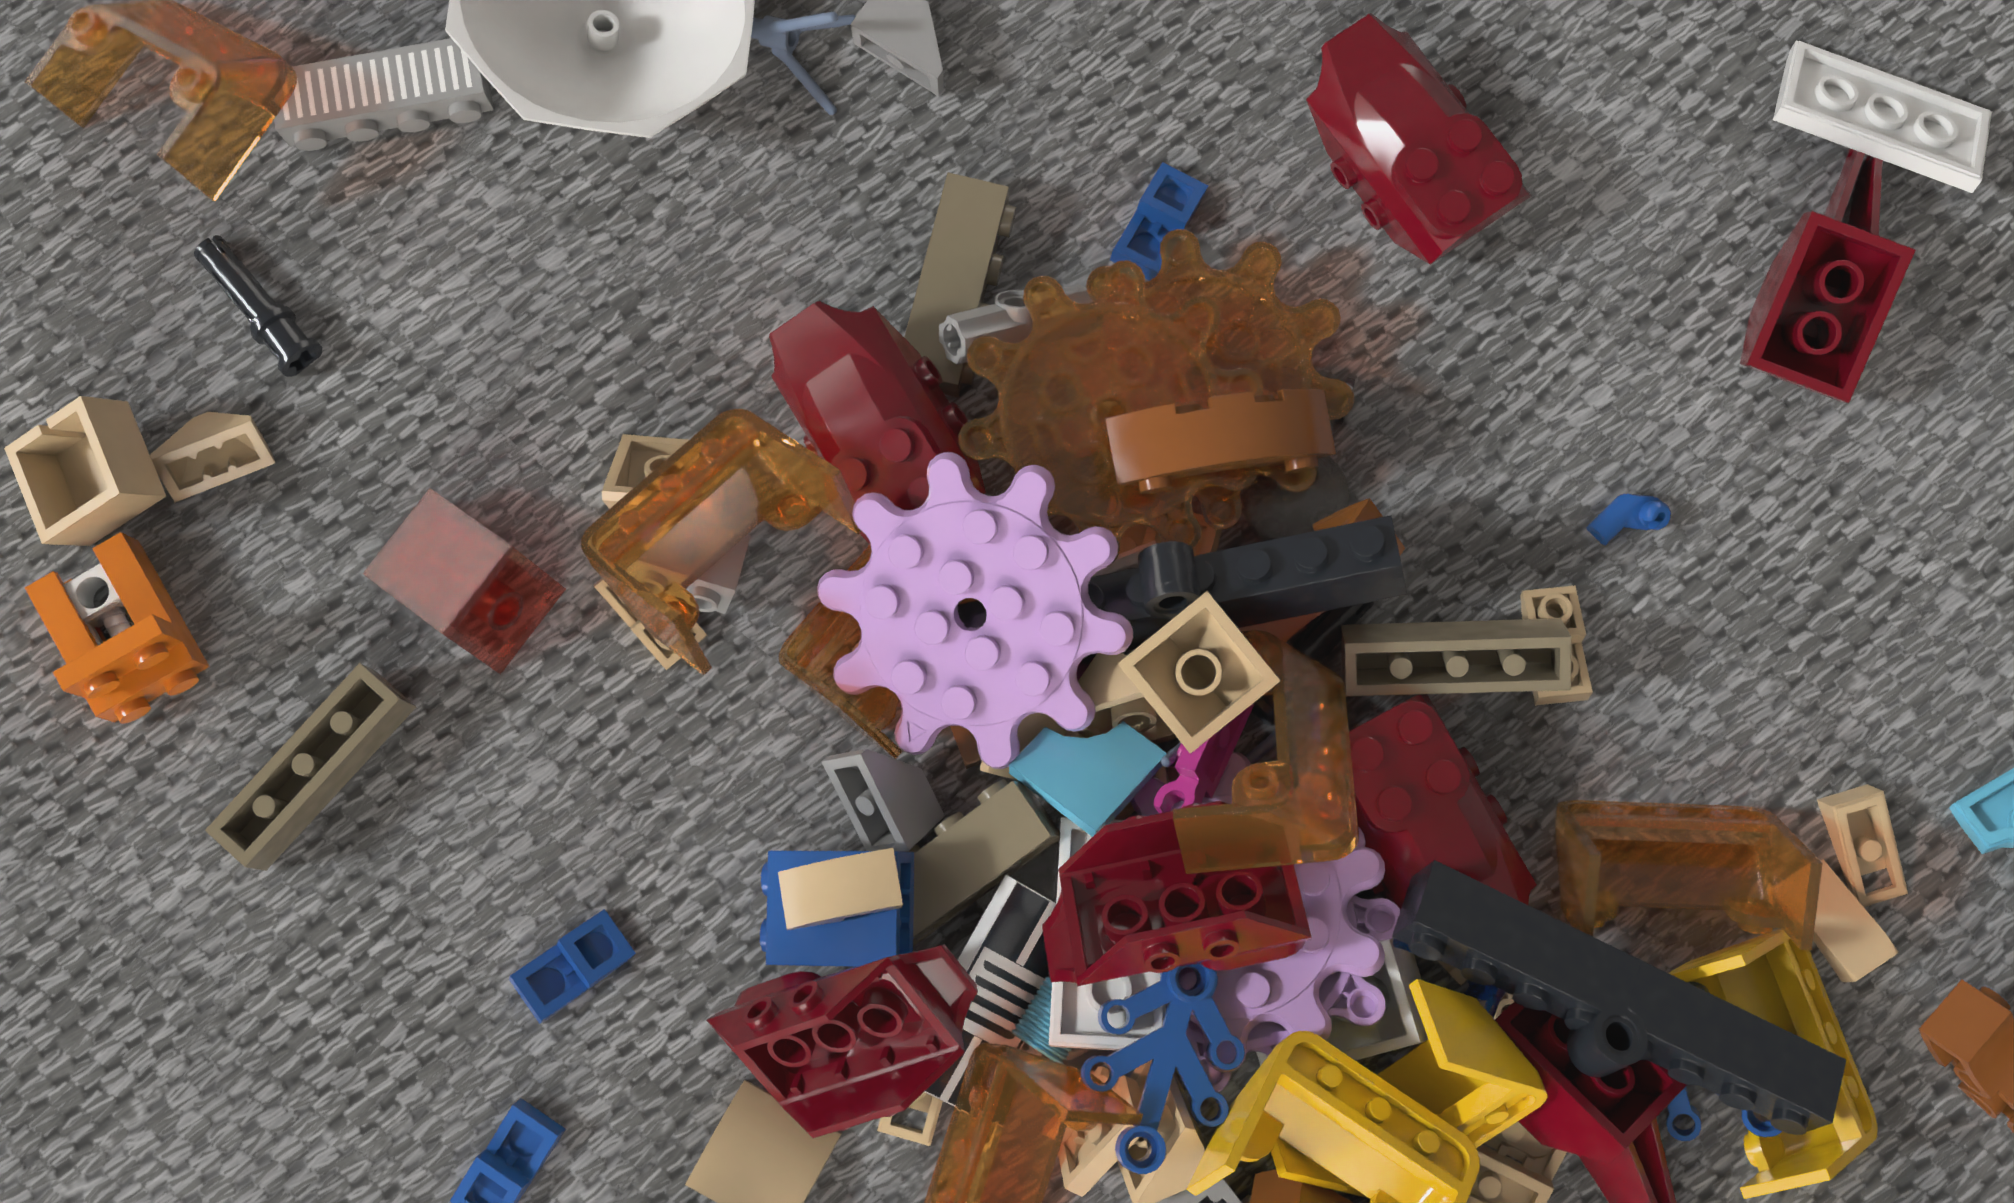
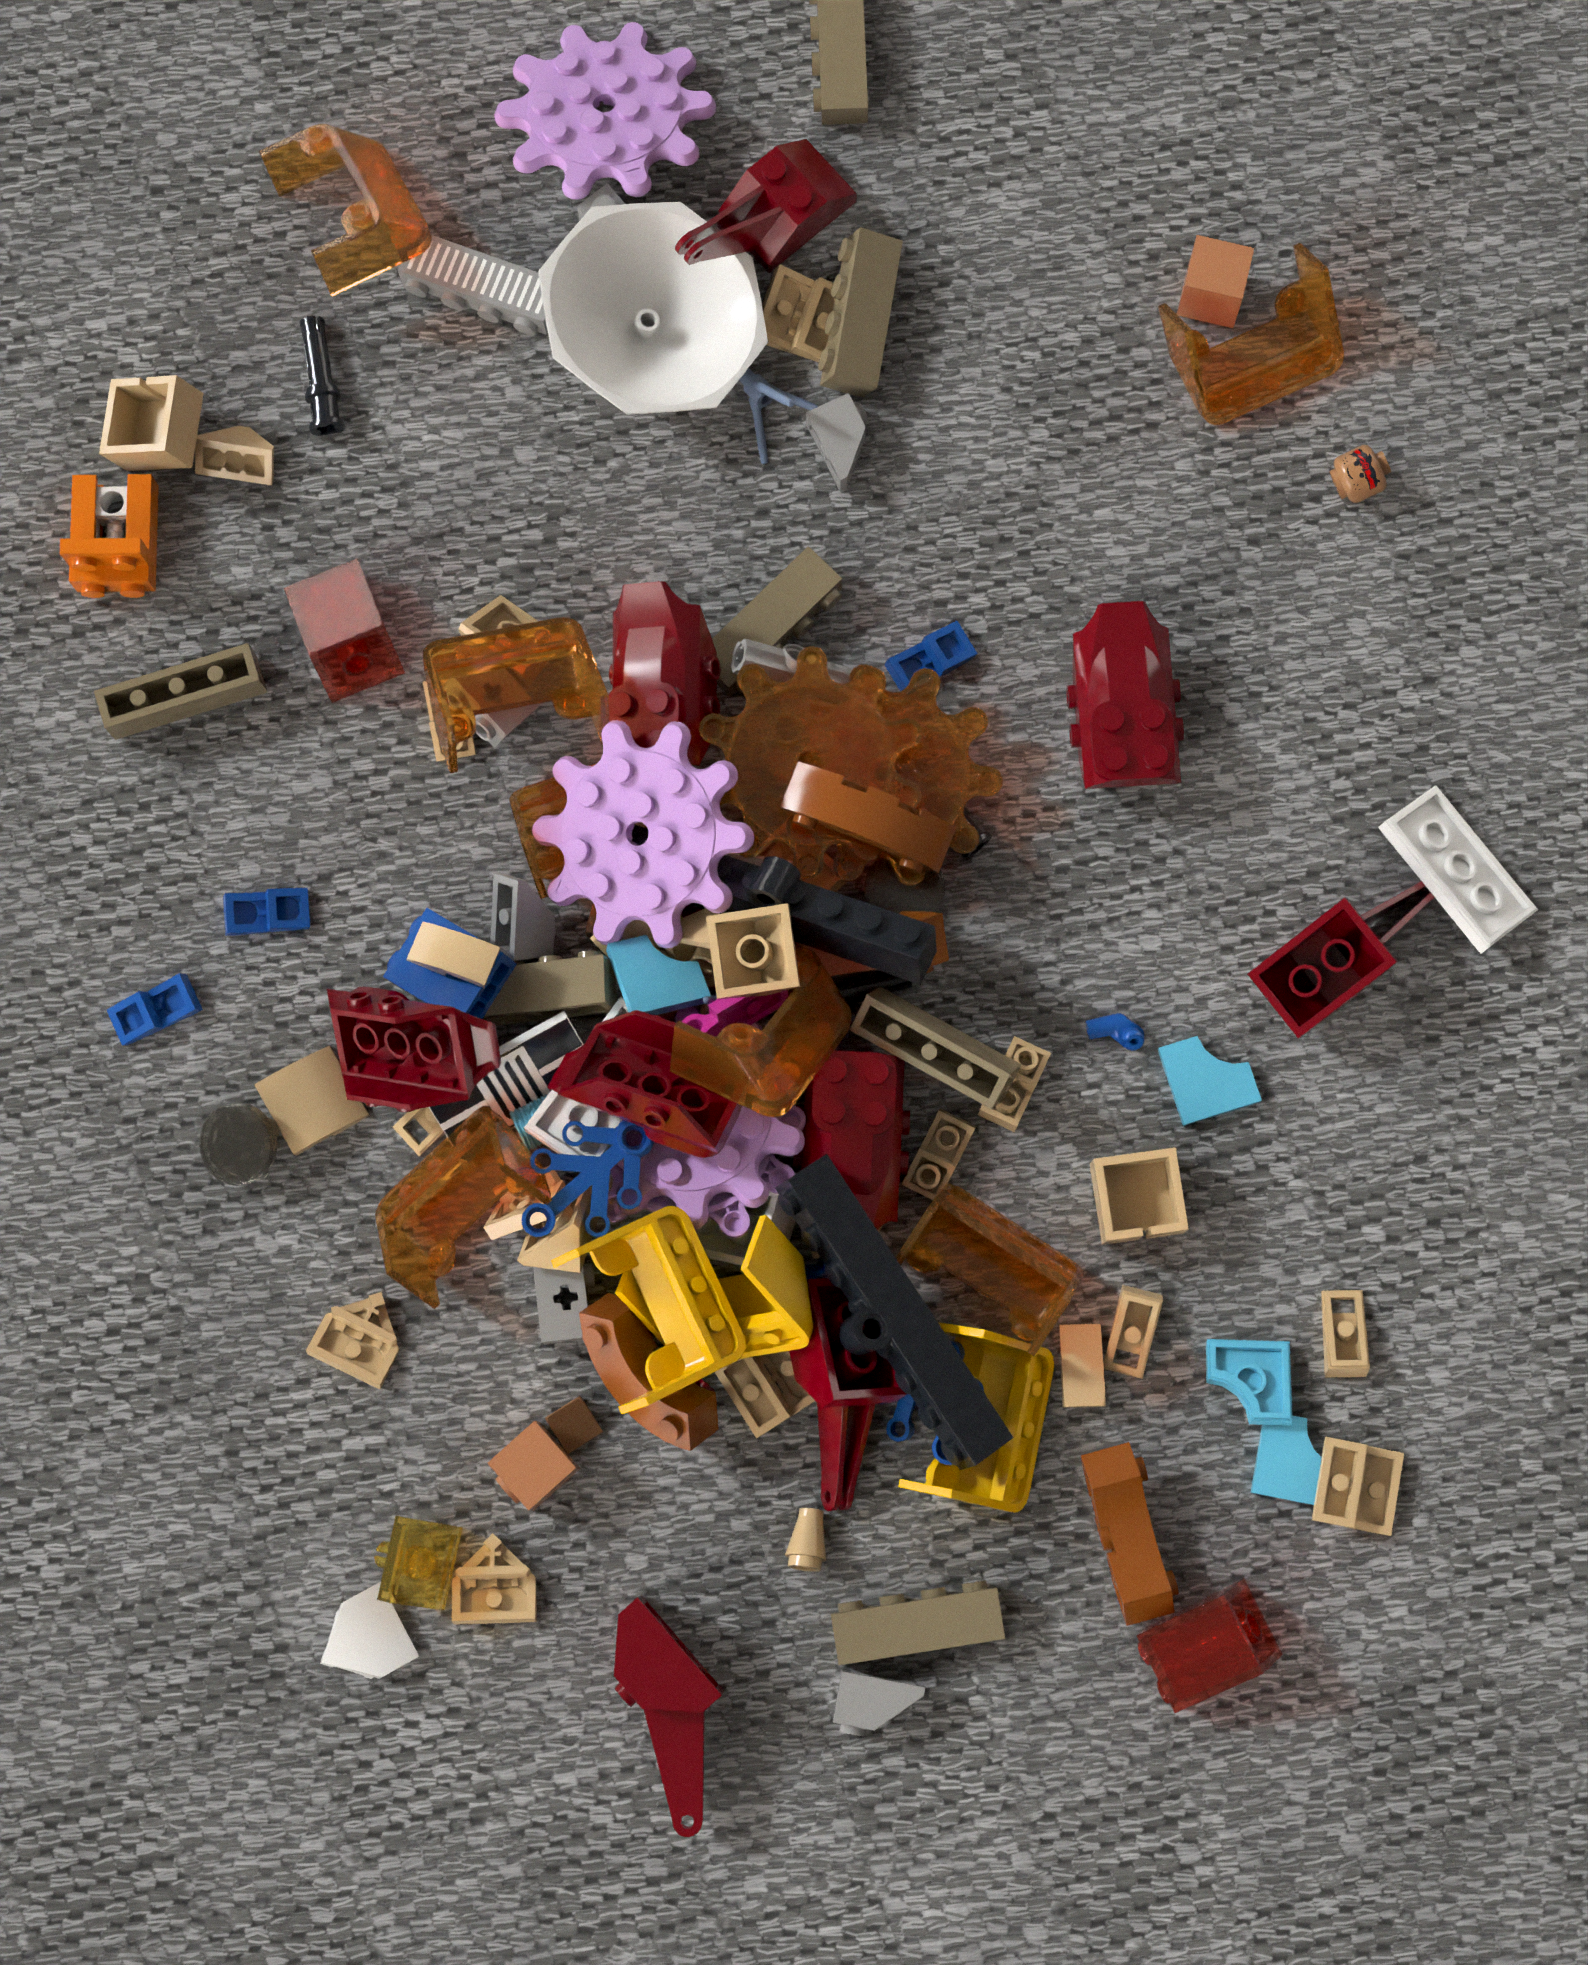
camera: 35 degrees right, 0 degrees up
(1524, 776) = (938, 1154): none -> tan slope
(1763, 518) = (1204, 1084): none -> medium azure tile
(1779, 685) = (1138, 1195): none -> tan piece

